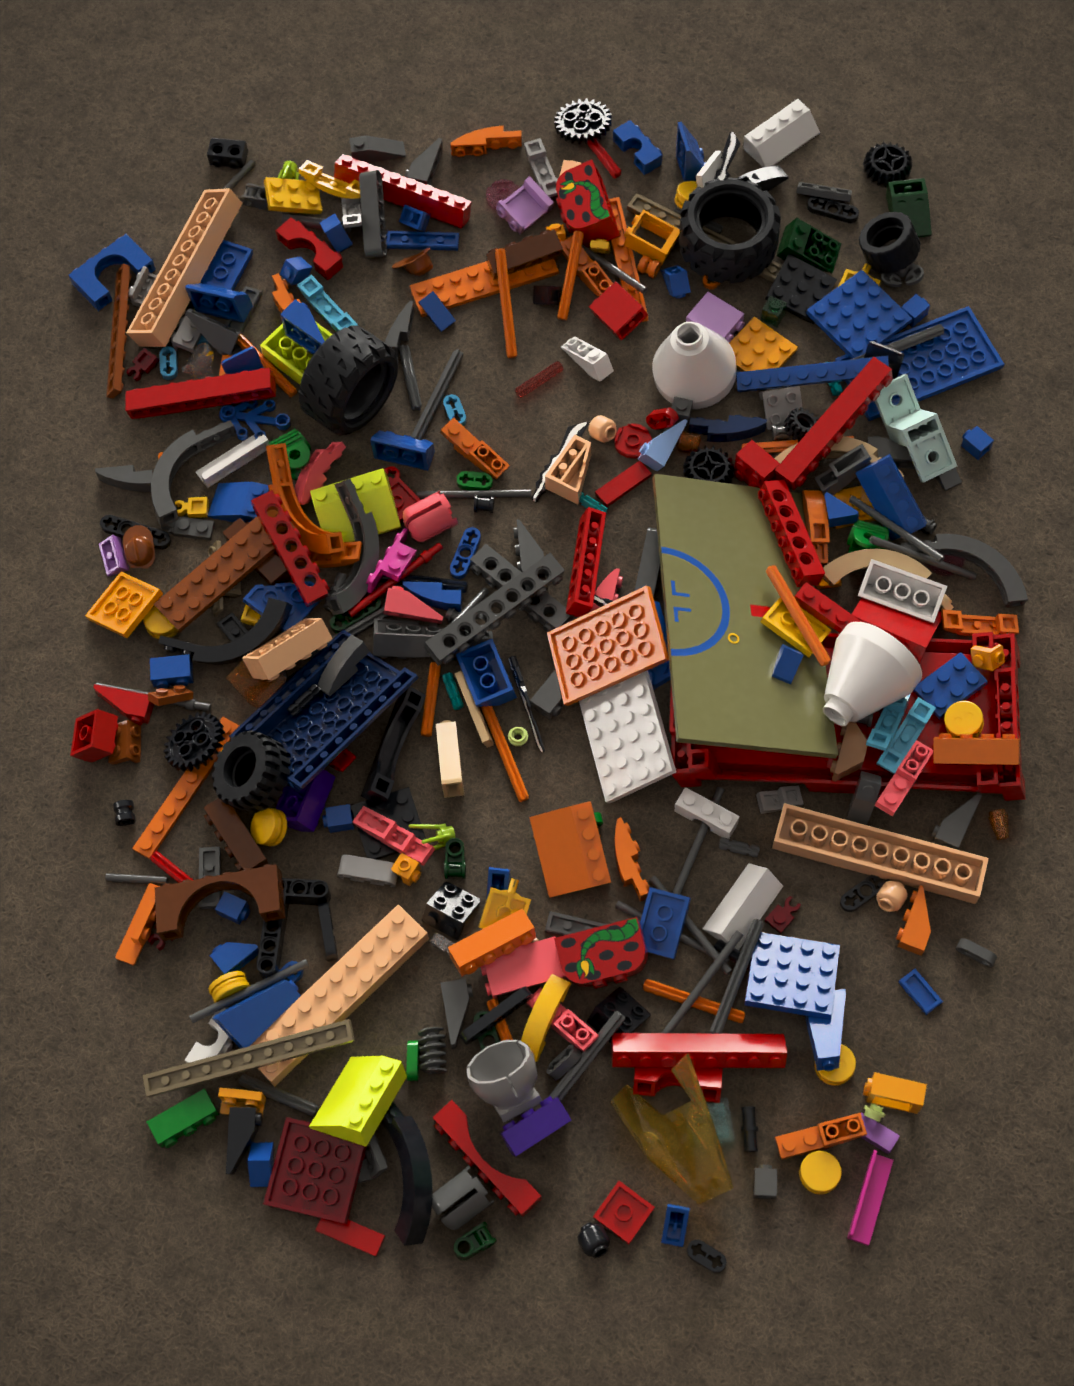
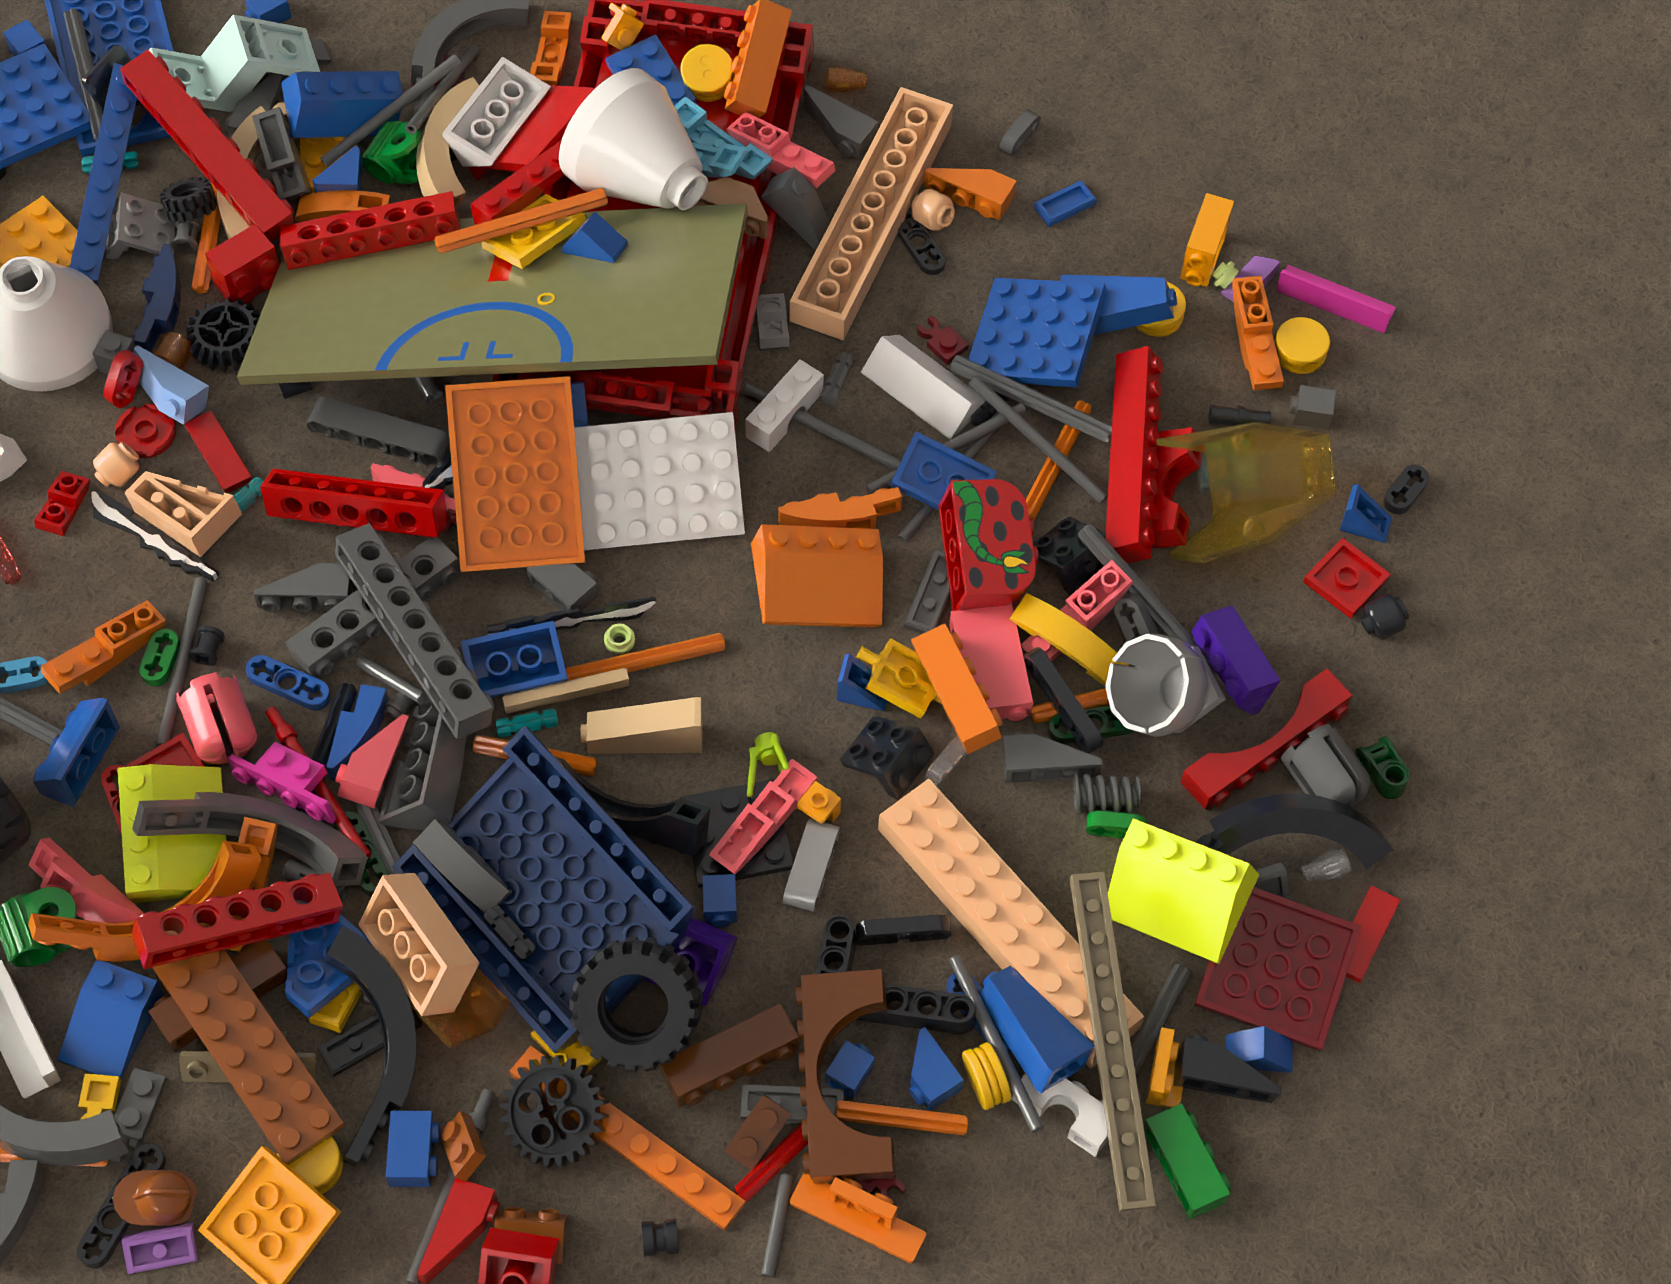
camera: 90 degrees left, 5 degrees down
(189, 858) = (757, 1132): none -> reddish brown plate
(202, 941) = (901, 1117): none -> orange axle
(268, 827) = (725, 1000): yellow head -> none
(393, 1202) = (1327, 866): none -> clear cone
(455, 862) = (811, 740): dark green piece -> none
(576, 408) = (64, 500): none -> red slope

